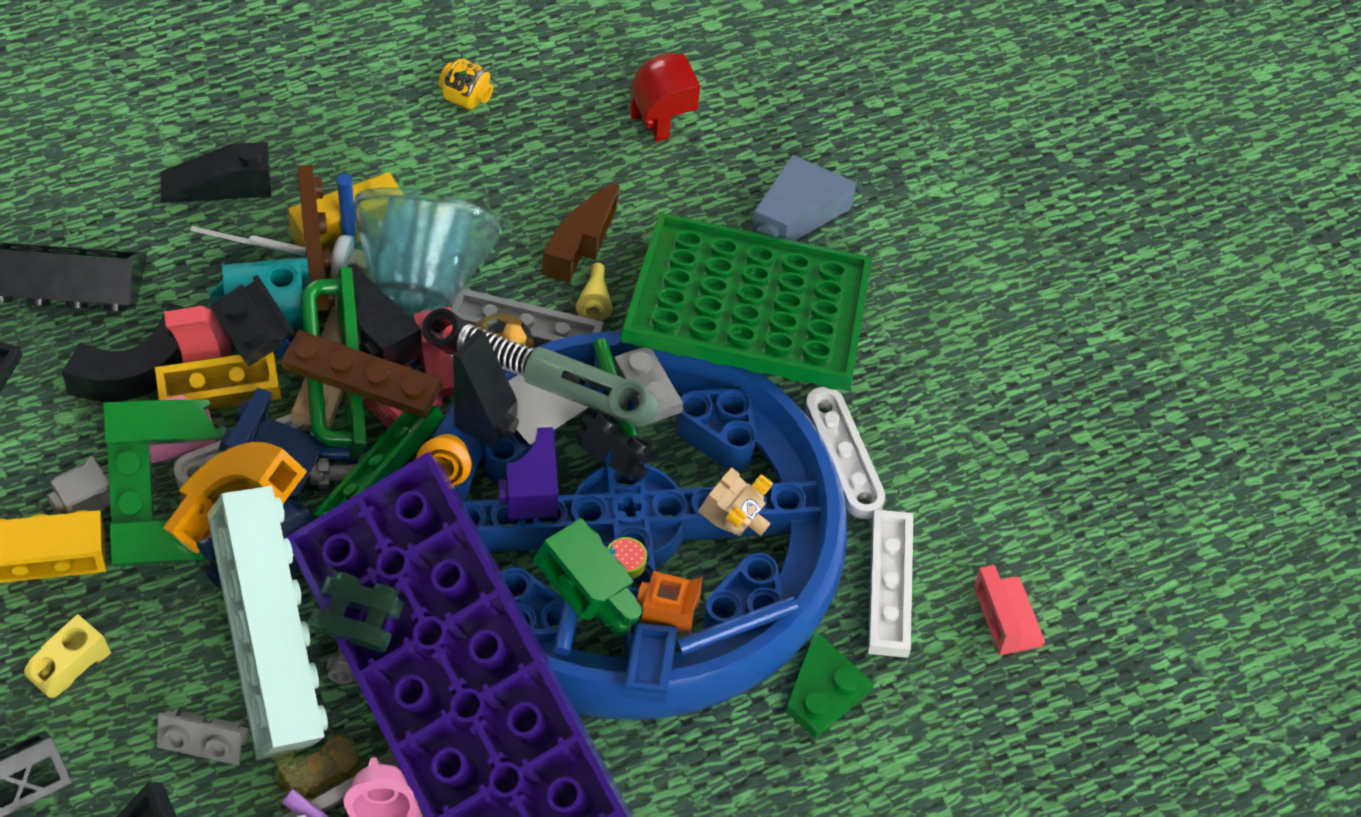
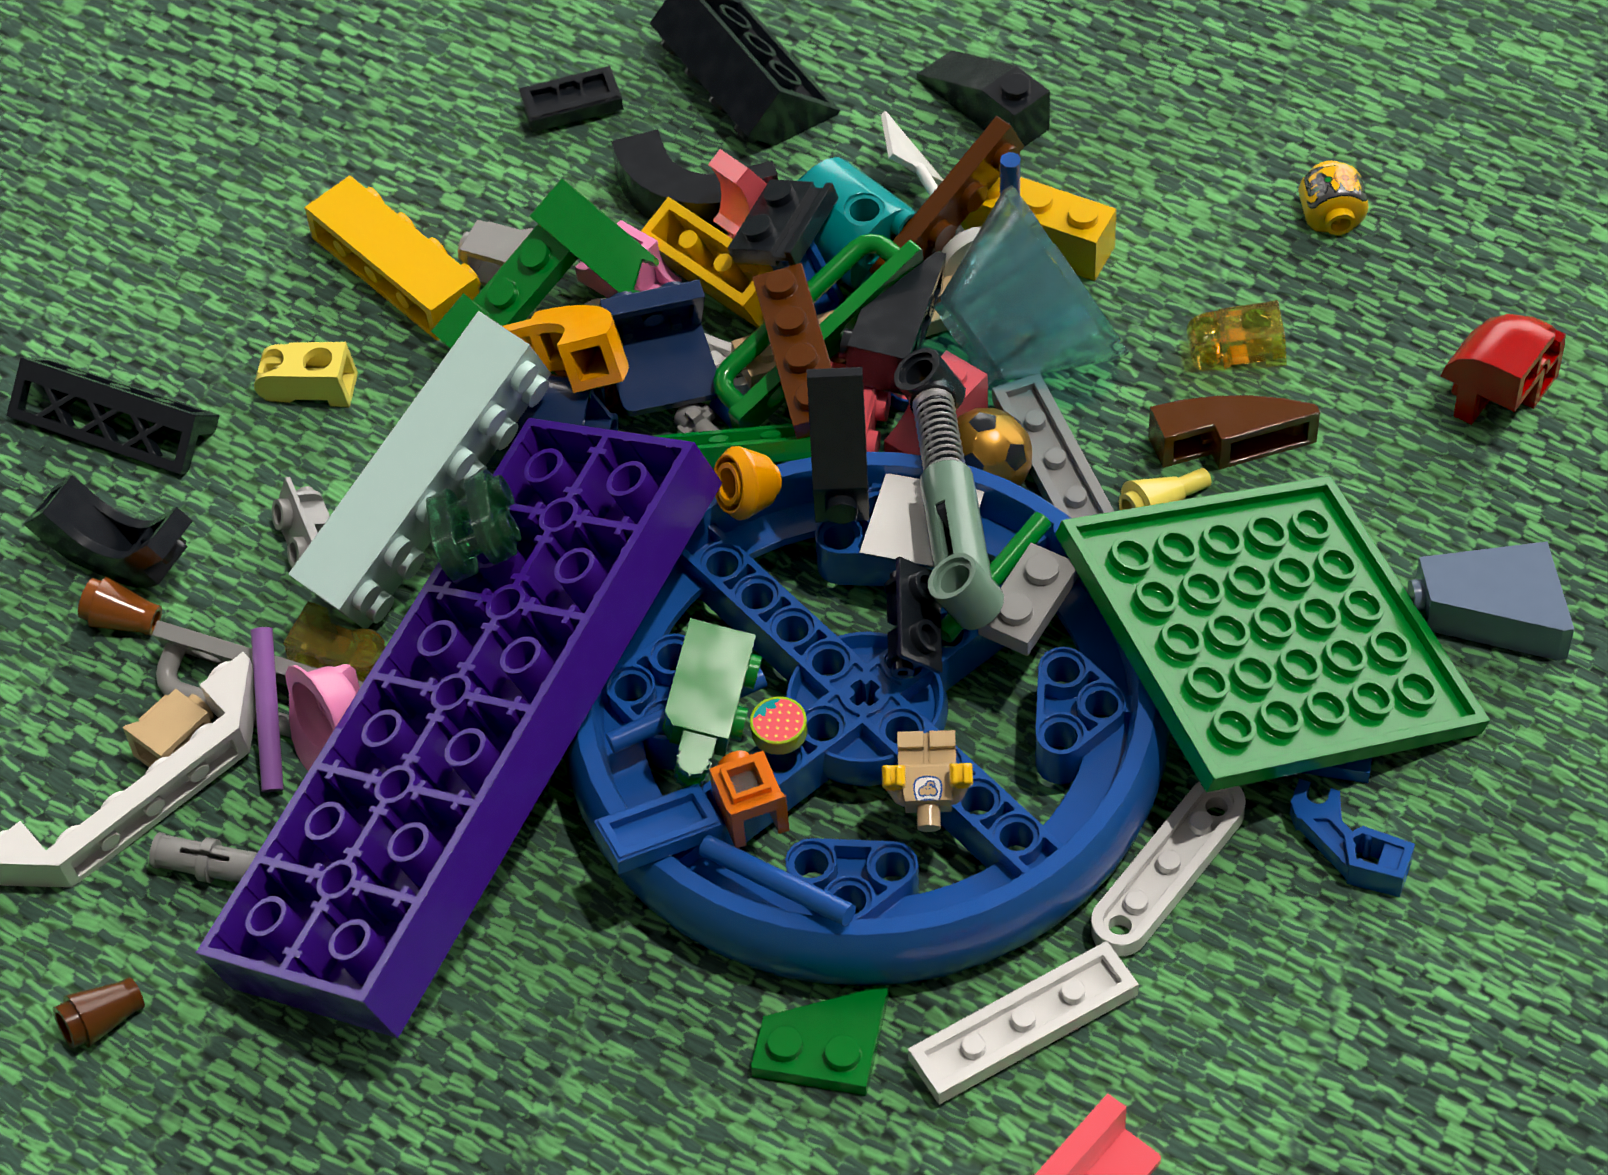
camera: 65 degrees right, 0 degrees up
(522, 186) = (1237, 337): none -> clear yellow leg
(532, 481) = (792, 576): dark purple arch -> none
(898, 371) = (1335, 840): none -> blue piece

